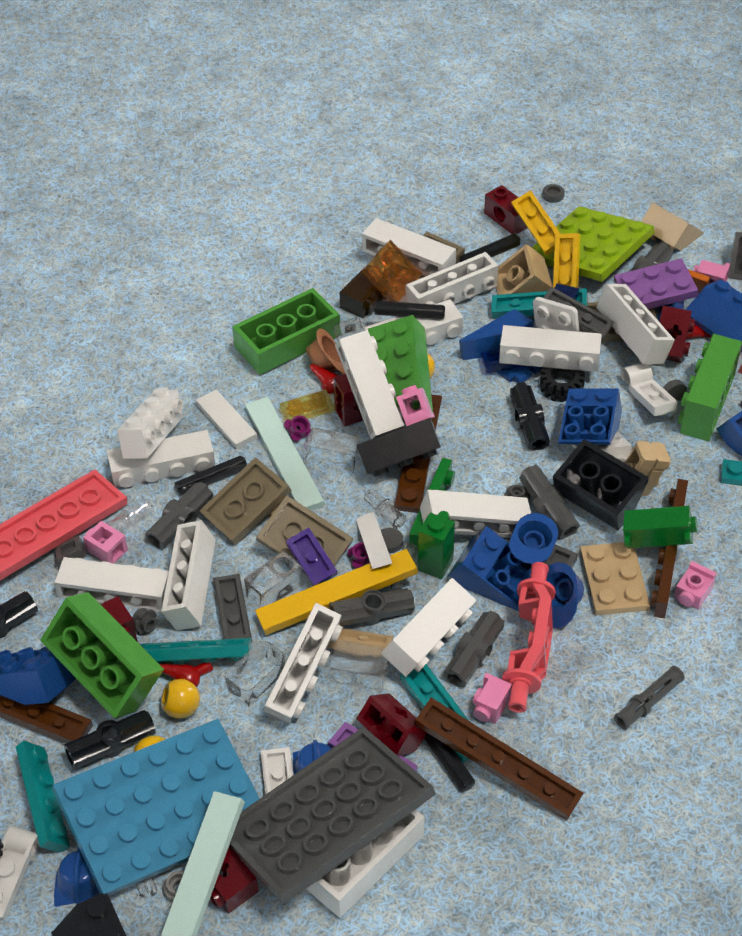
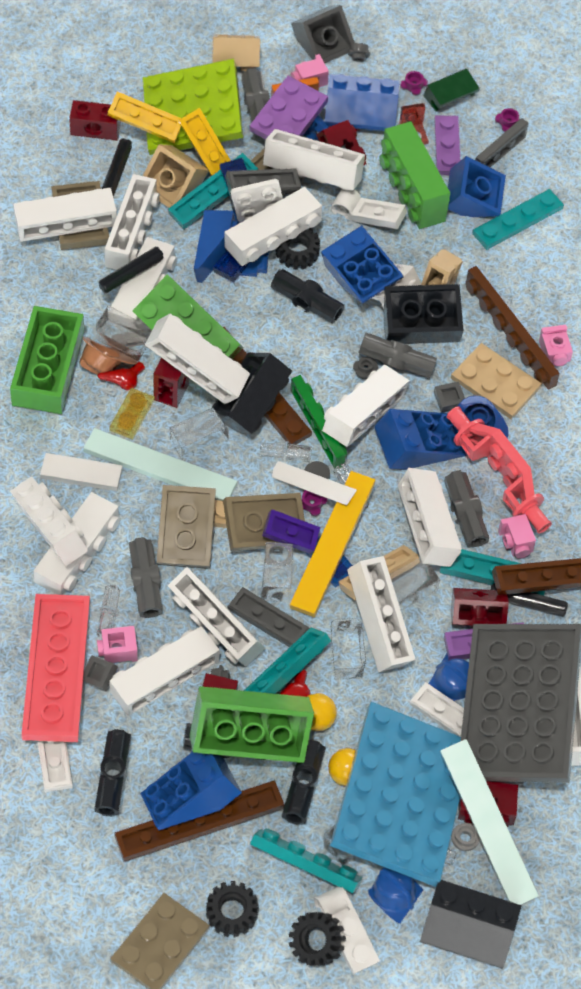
camera: 50 degrees left, 10 degrees up
(211, 474) = (127, 527): black axle -> none
(300, 422) = (148, 435): magenta plate -> none
(359, 296) = (65, 279): dark brown brick -> none
(385, 604) = (369, 533): dark grey piece -> none
(391, 272) = (80, 245): clear orange plate -> none
(405, 403) = (252, 354): bright pink brick -> none
(436, 544) = (369, 449): green brick -> none
(533, 538) = (425, 393): blue piece -> none
(553, 193) = (106, 77): dark grey tile -> none
(659, 527) = (501, 318): green brick -> none
(676, 389) = (386, 194): dark grey tile -> none

